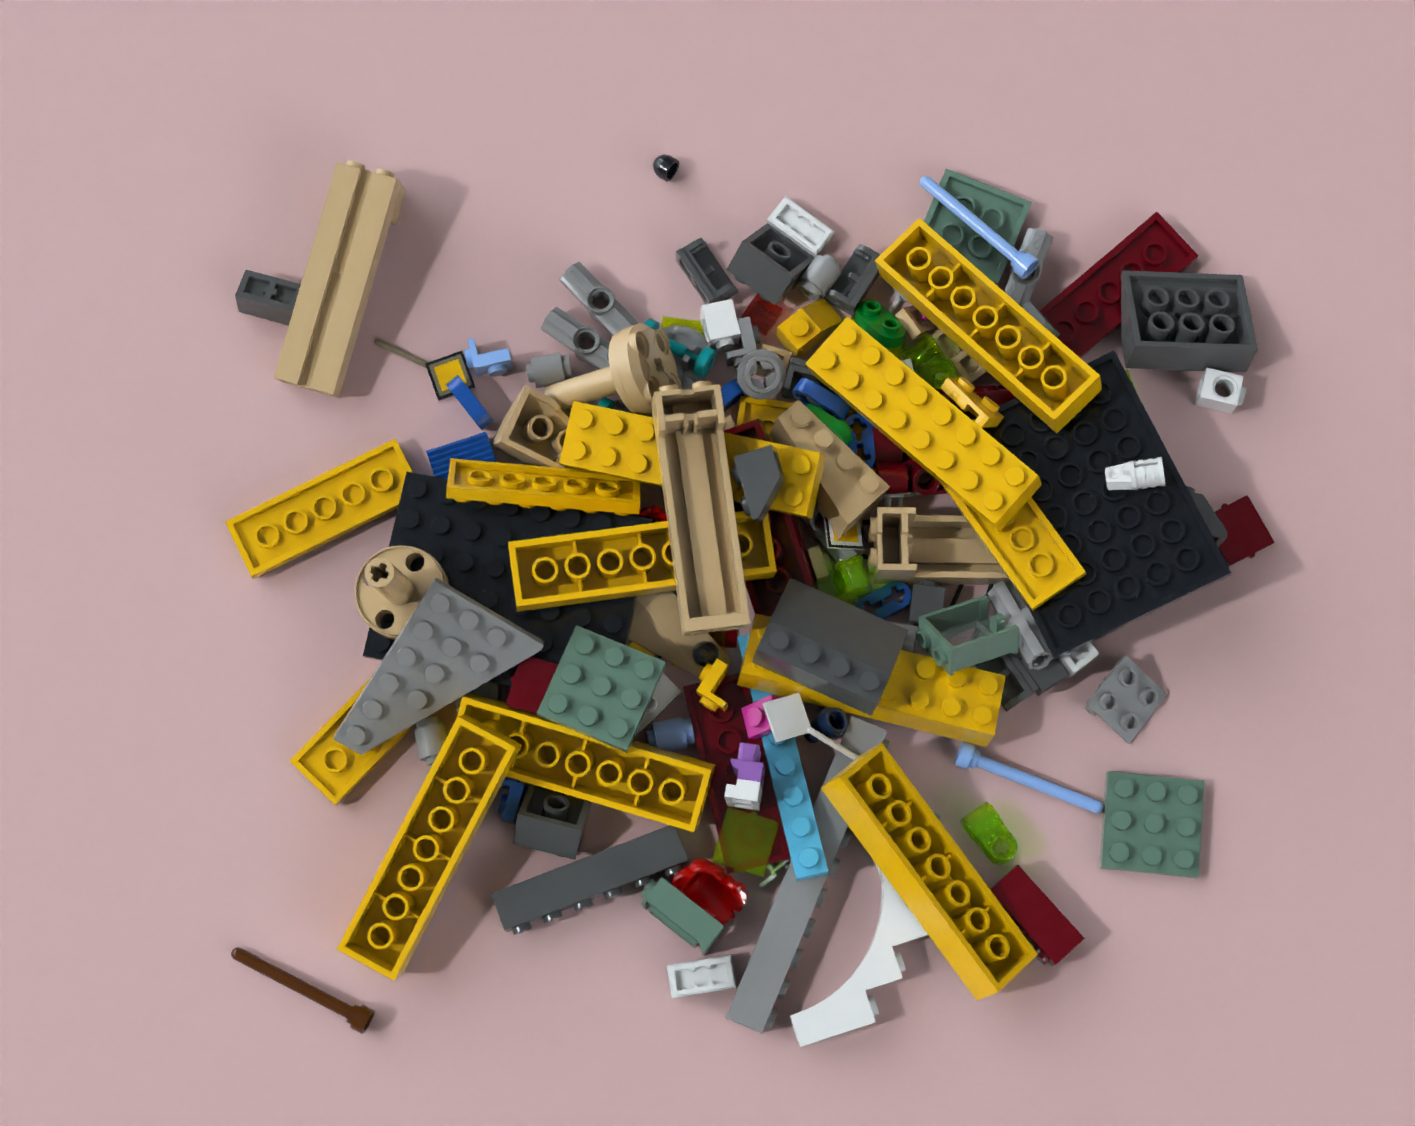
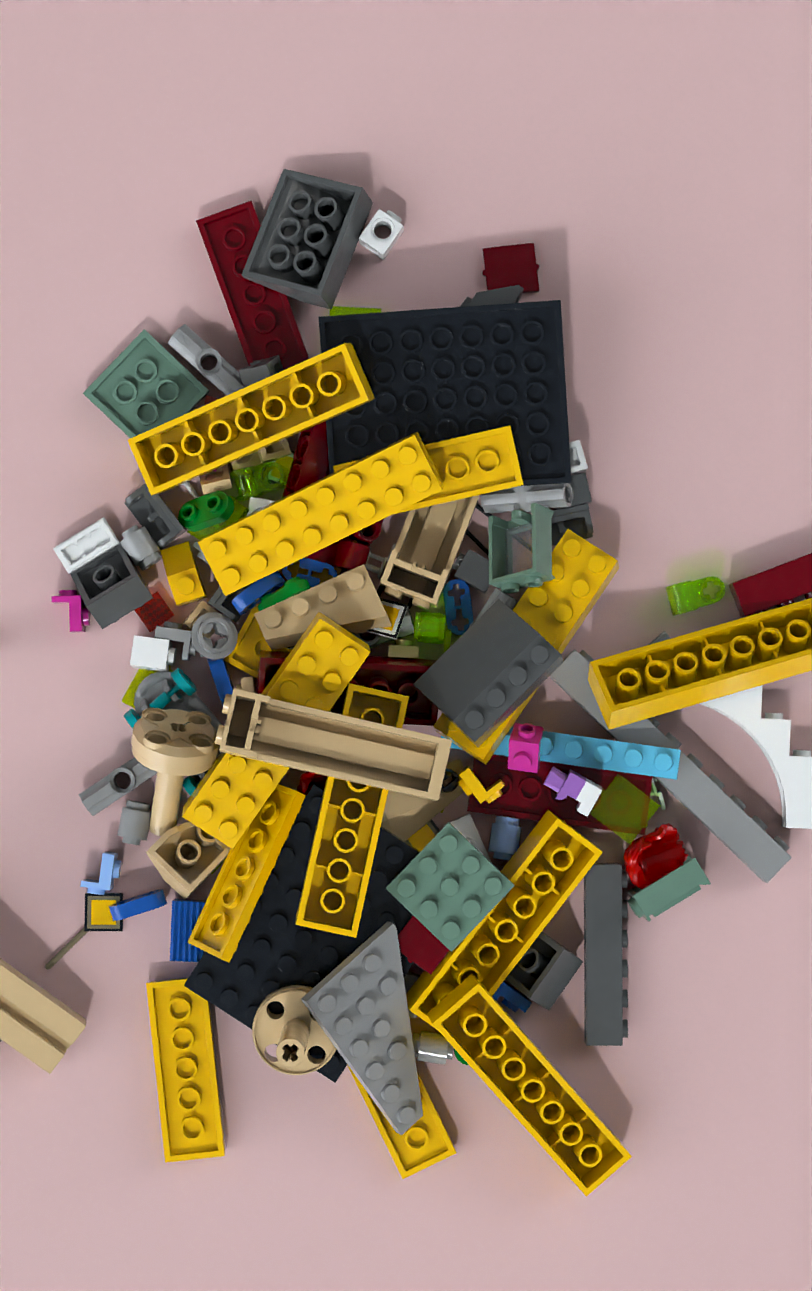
camera: 70 degrees left, 10 degrees up
(357, 1016) = (644, 1197): reddish brown piece -> none
(588, 290) = (73, 761): light grey piece -> none
(701, 976) = (723, 890): white plate -> none
(705, 272) = (97, 647): dark grey hinge -> none
(729, 242) = (78, 614): none -> dark pink bracket
(760, 478) = (324, 680): dark grey slope -> none
(789, 720) = (538, 732): white piece -> none
(829, 722) = (550, 698): dark blue cone -> none
(962, 393) = (314, 465): yellow wing -> none
(971, 757) = (621, 585): light blue piece -> none
(1022, 262) = (199, 363): light blue piece -> none
(1126, 699) = (622, 430): light grey hinge -> none
(1135, 475) = (441, 346): white hinge -> none
(1152, 824) = (737, 452): sand green plate -> none

